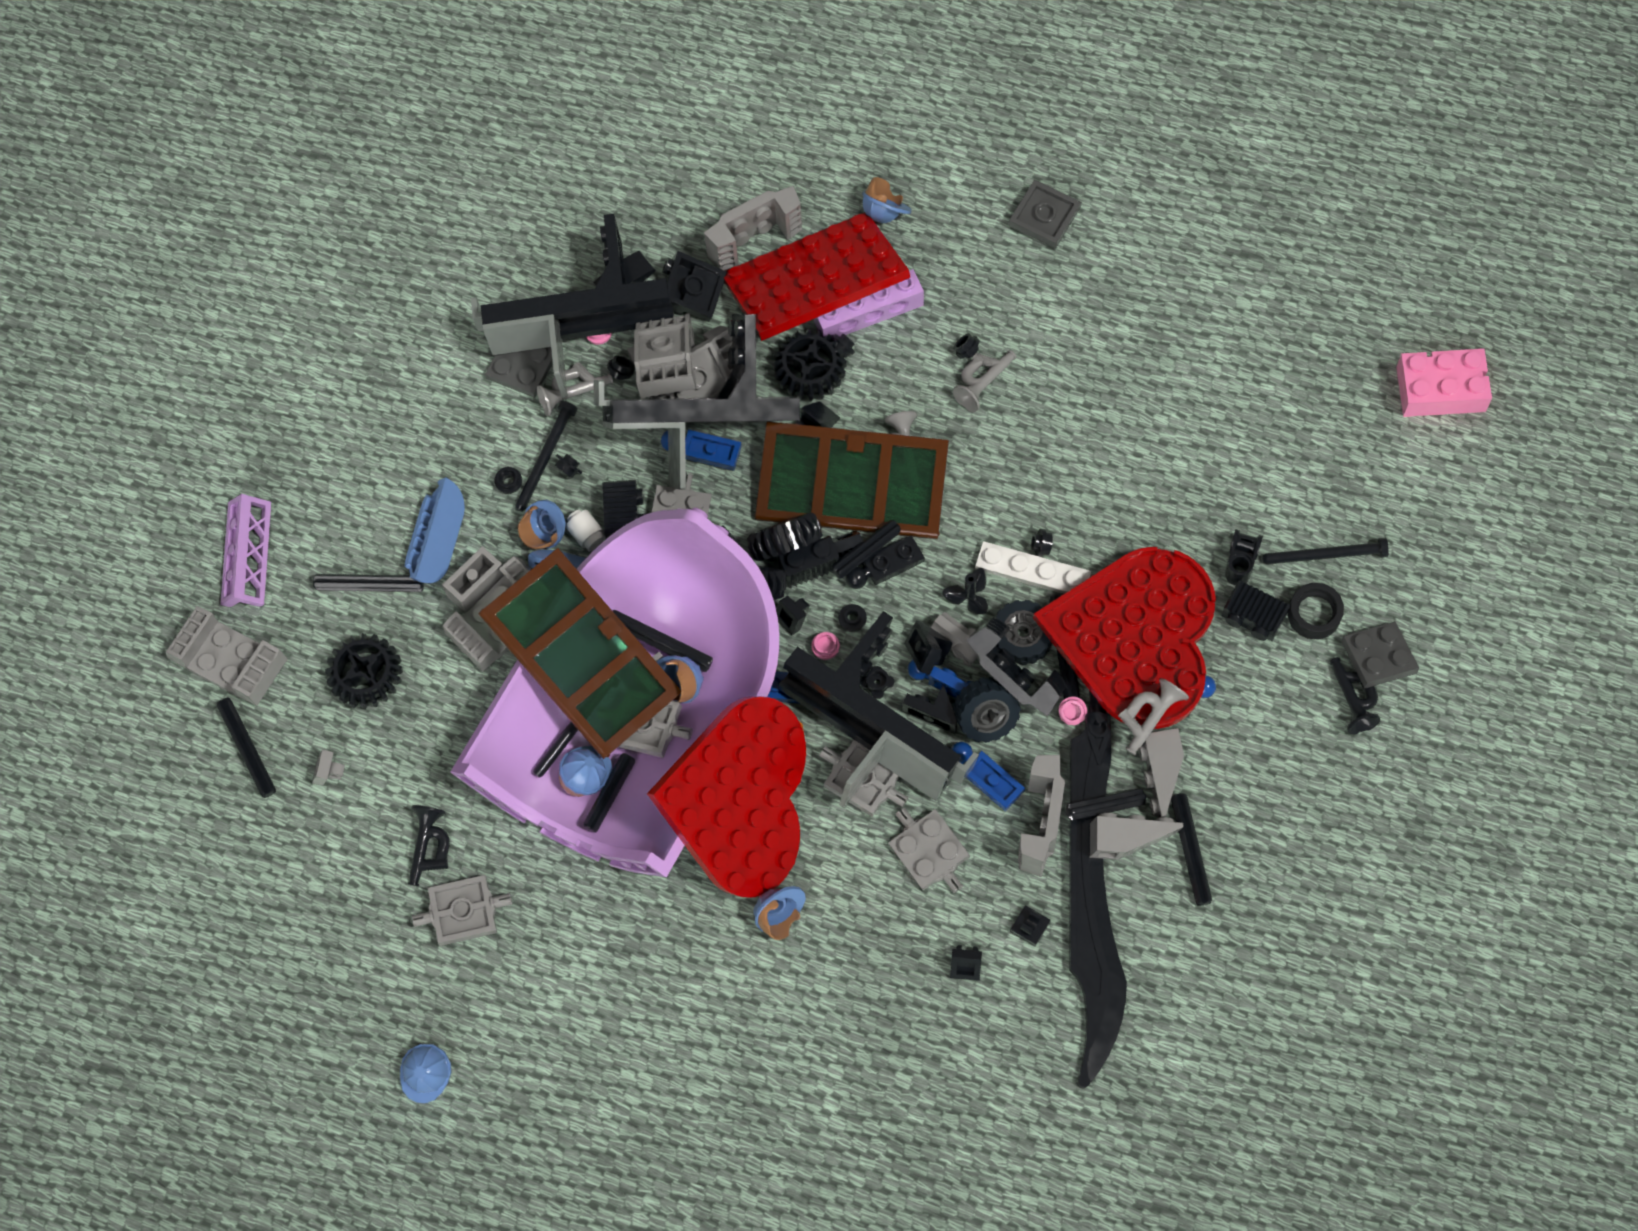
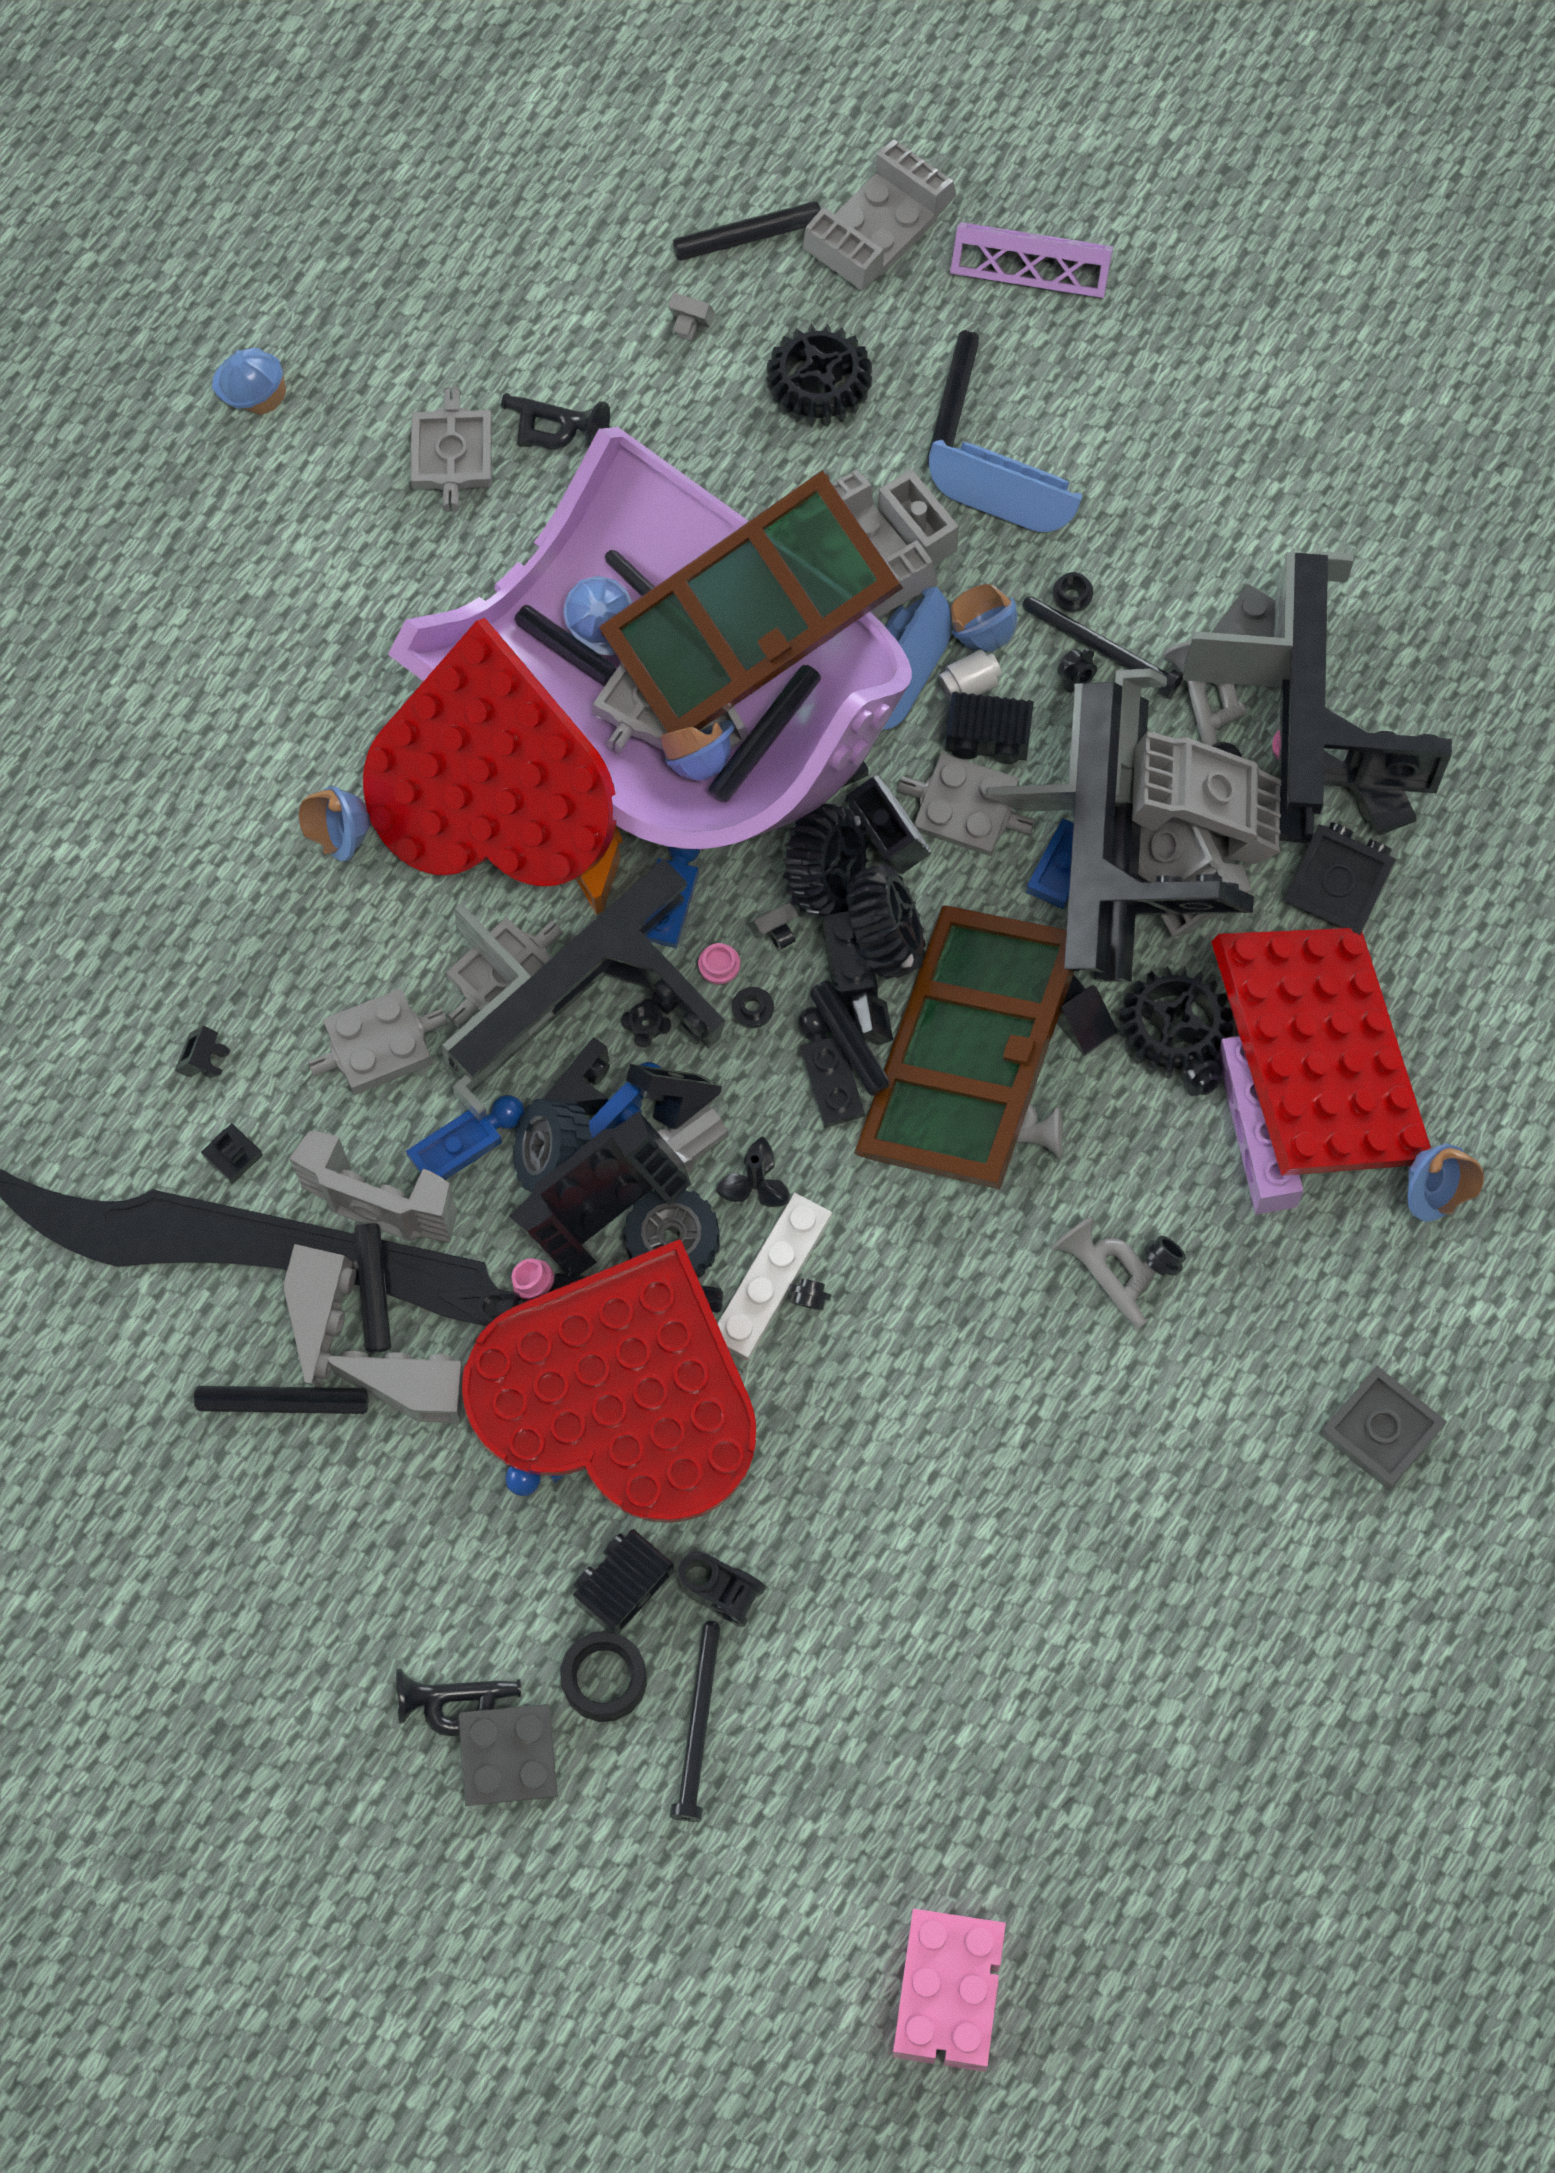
camera: 100 degrees right, 0 degrees up
(749, 219) = (1442, 1019): light grey plate -> none
(1169, 695) = (499, 1398): light grey piece -> none

